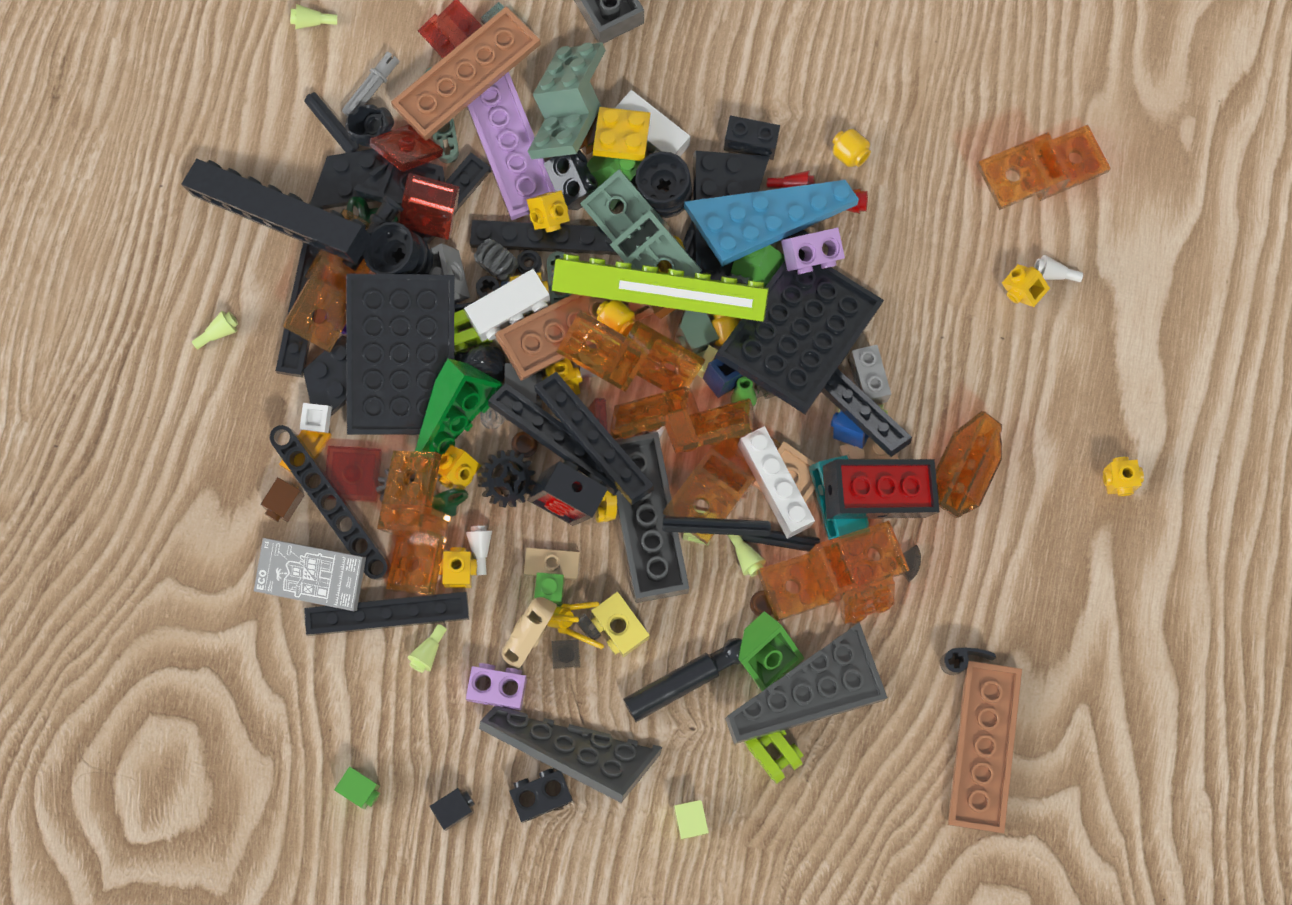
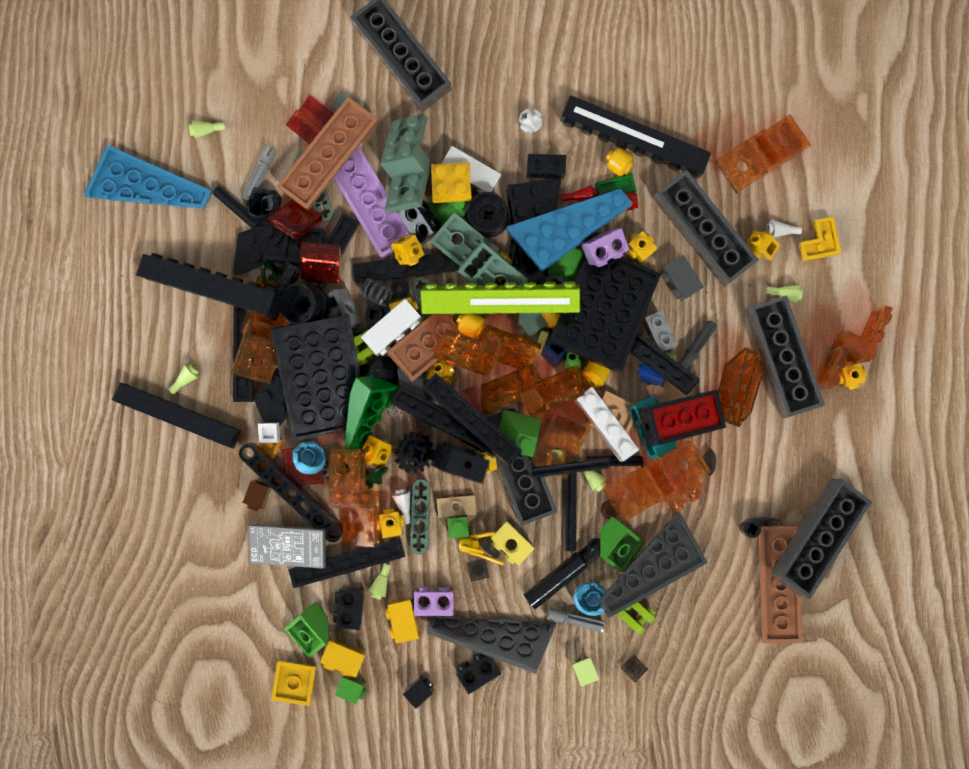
camera: 10 degrees left, 10 degrees up
(195, 376) = (176, 415): none -> black beam
(205, 67) = (134, 180): none -> dark azure wing
(280, 767) = (294, 682): none -> yellow plate
(316, 695) = (309, 629): none -> bright green slope
(356, 743) = (343, 658): none -> yellow brick
(363, 459) = (309, 457): none -> medium azure hair
(385, 677) = (354, 609): none -> black brick
(448, 705) = (403, 620): none -> yellow brick
(497, 568) = (417, 516): none -> sand green beam
(528, 631) = (449, 561): tan piece -> none
(660, 467) = (521, 430): none -> bright green slope
(689, 747) = (575, 620): none -> light grey axle
(709, 593) = (570, 511): none -> black axle
(709, 719) = (587, 598): none -> medium azure hair
(741, 77) = (530, 120): none -> white gear
(761, 829) = (634, 668): none -> clear smoke plate
(774, 415) = (595, 374): none -> yellow head
(855, 176) = (625, 183): none -> green tile
(862, 260) = (643, 252): none -> yellow brick
(876, 120) = (635, 136): none -> black brick
(910, 311) = (681, 278): none -> dark grey brick
(910, 411) = (697, 345): none -> dark grey axle
(952, 251) = (705, 228): none -> dark grey brick
(1035, 436) = (784, 357): none -> dark grey brick
(1049, 687) = (821, 538): none -> dark grey brick
(1053, 354) = (793, 292): none -> yellowish green cone
(1112, 300) = (825, 245): none -> yellow plate
(1132, 438) = (854, 348): none -> clear orange bracket

